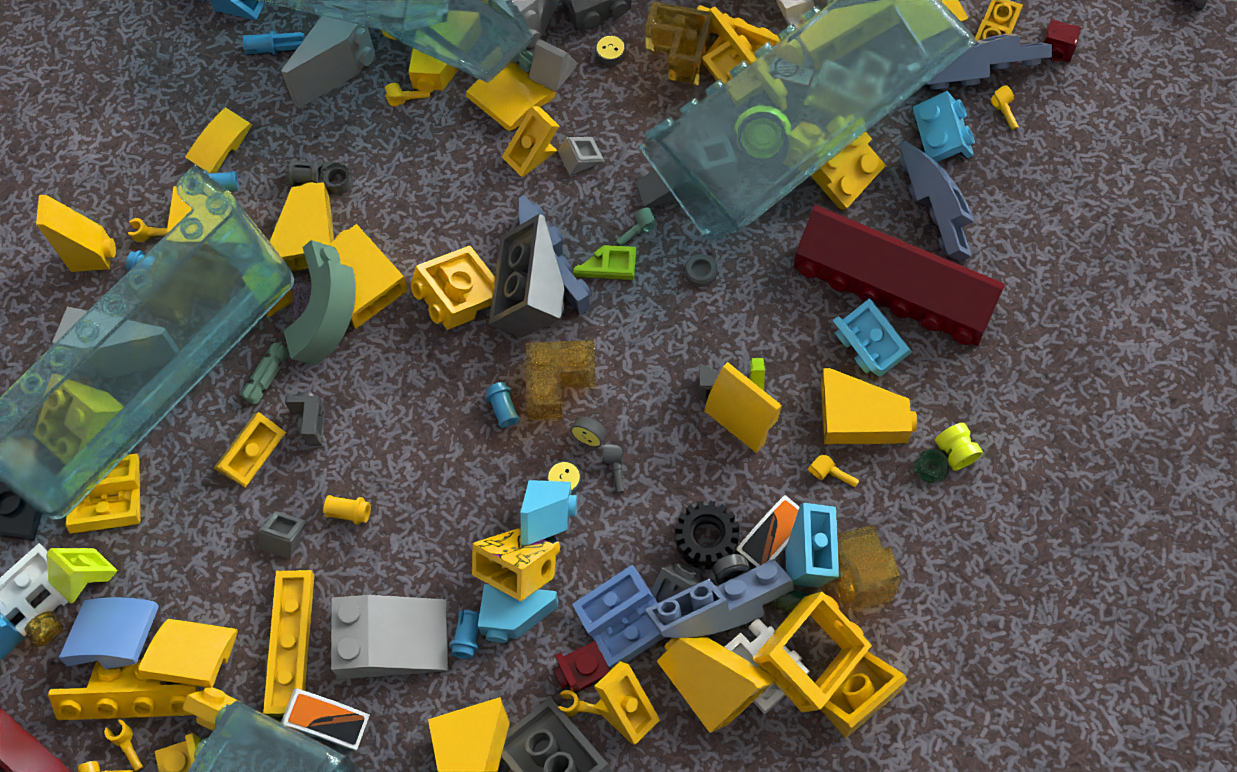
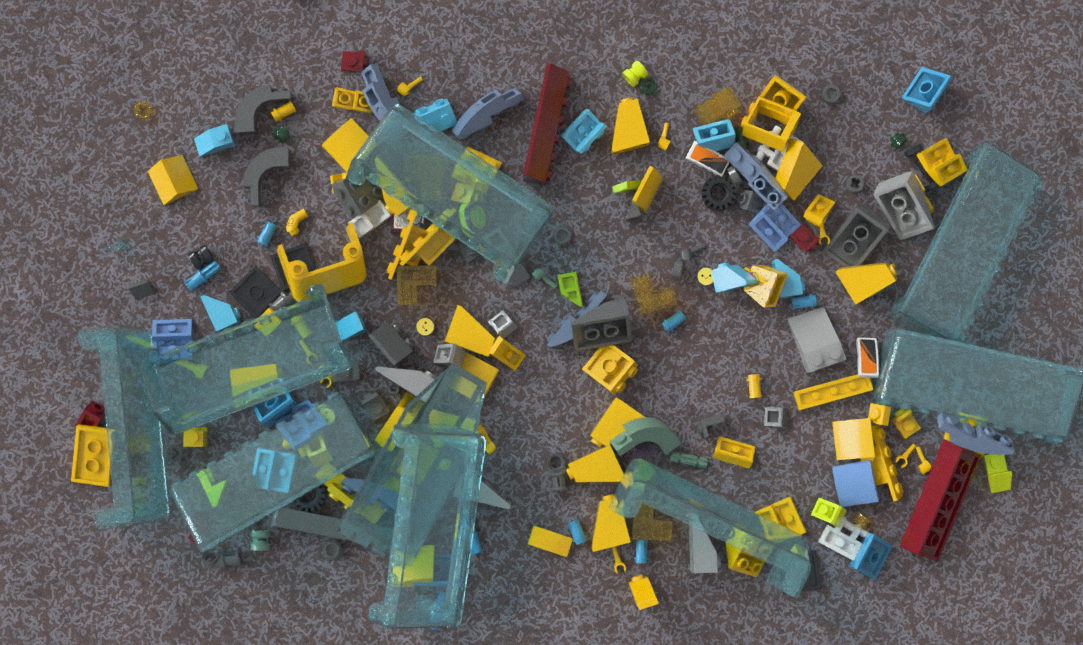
camera: 115 degrees left, 20 degrees up
(583, 98) = (469, 333): none -> yellow slope

